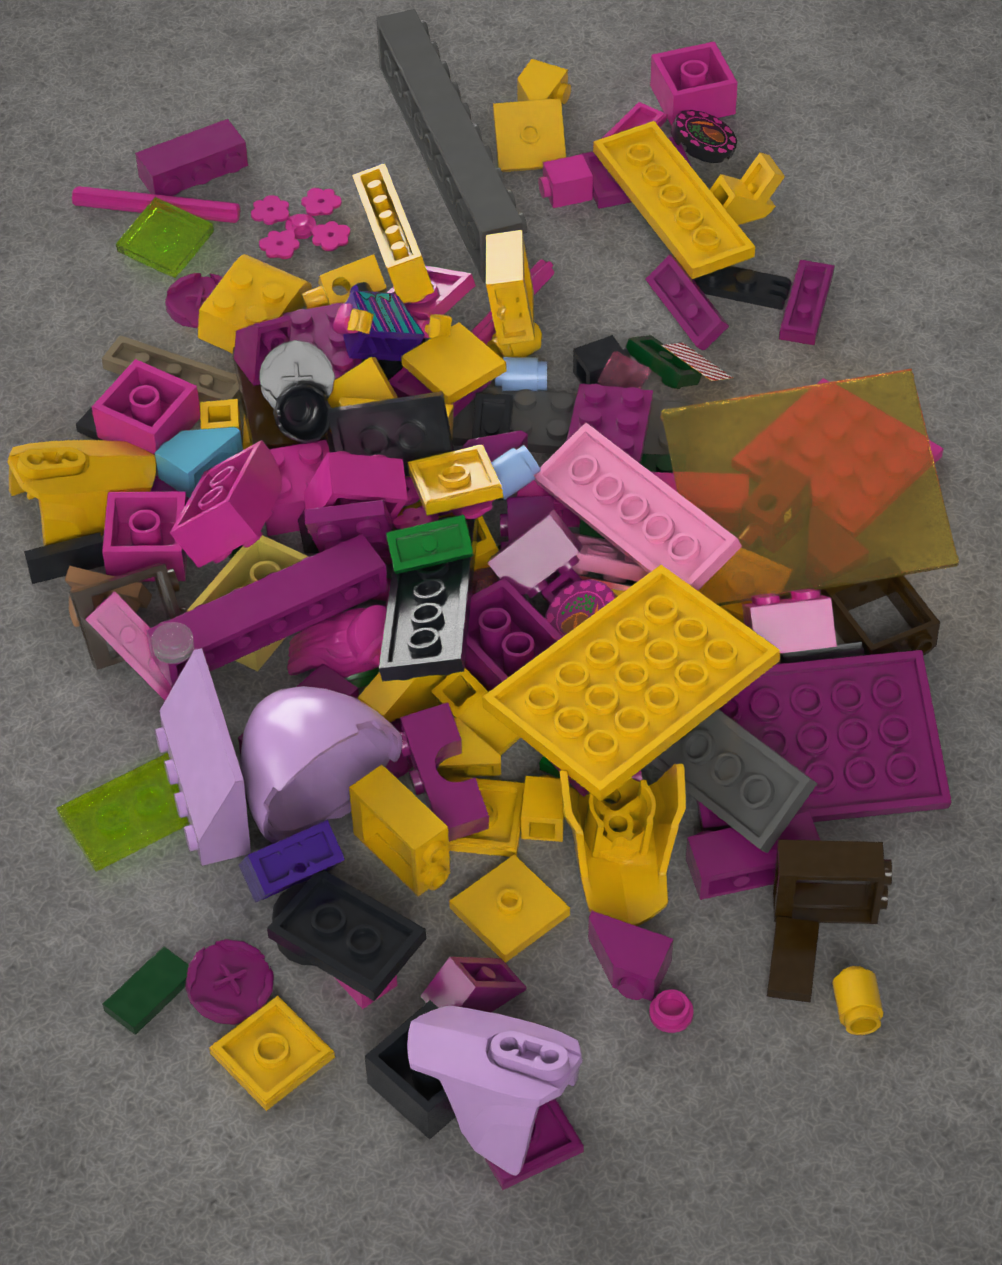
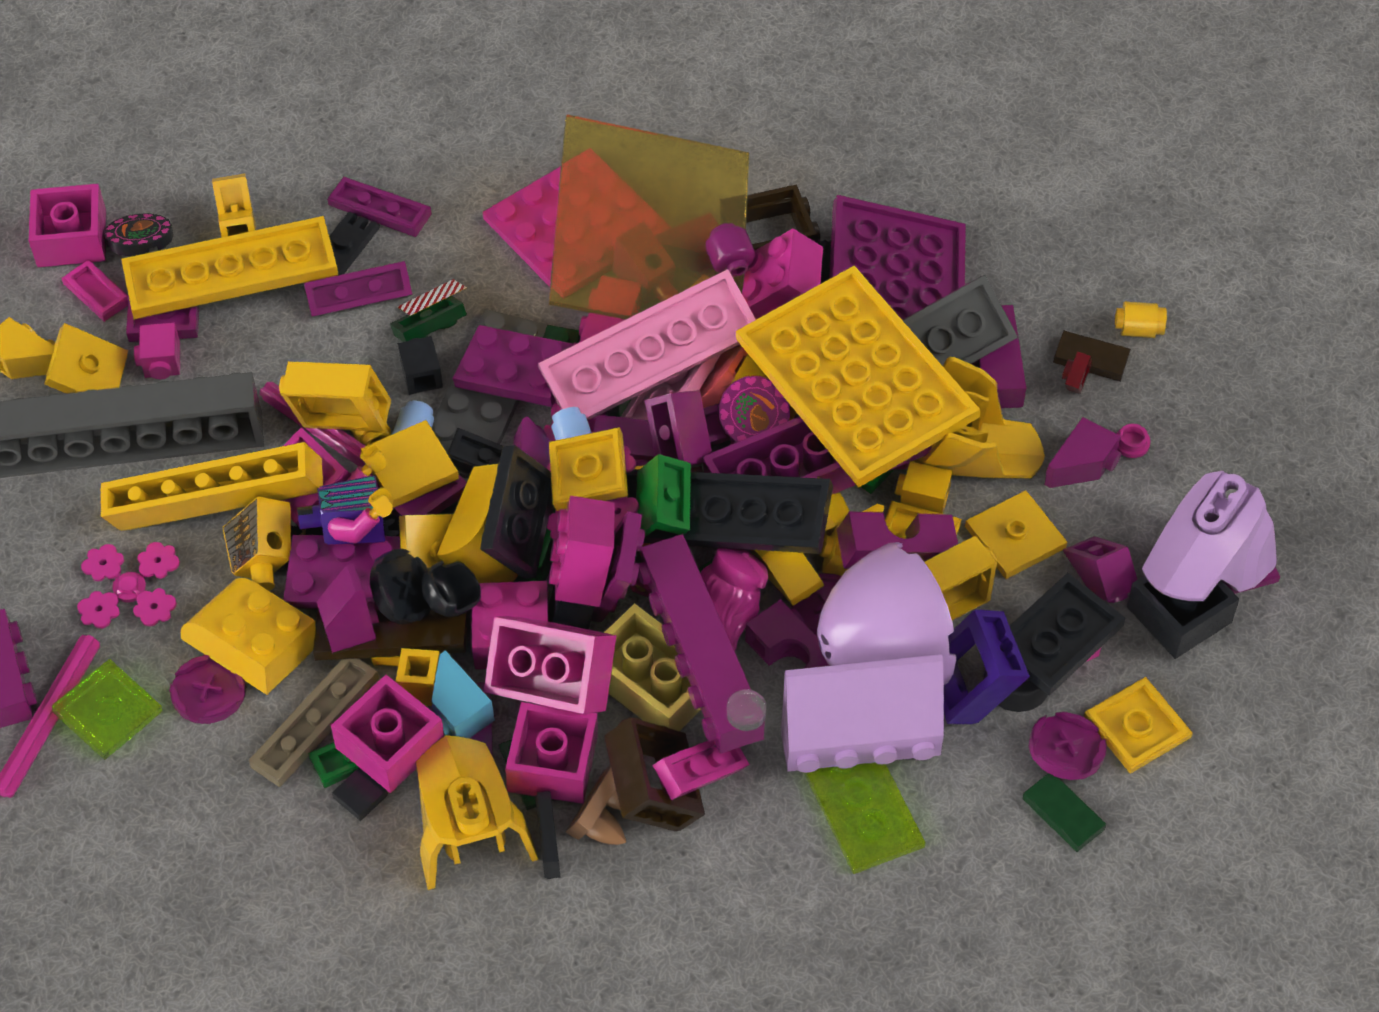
camera: 80 degrees left, 5 degrees up
(623, 372) = (447, 346): clear pink slope -> none
(748, 936) = (1076, 372): none -> dark red plate
(799, 561) = (730, 249): none -> magenta head
(831, 863) = (1043, 307): dark brown window -> none

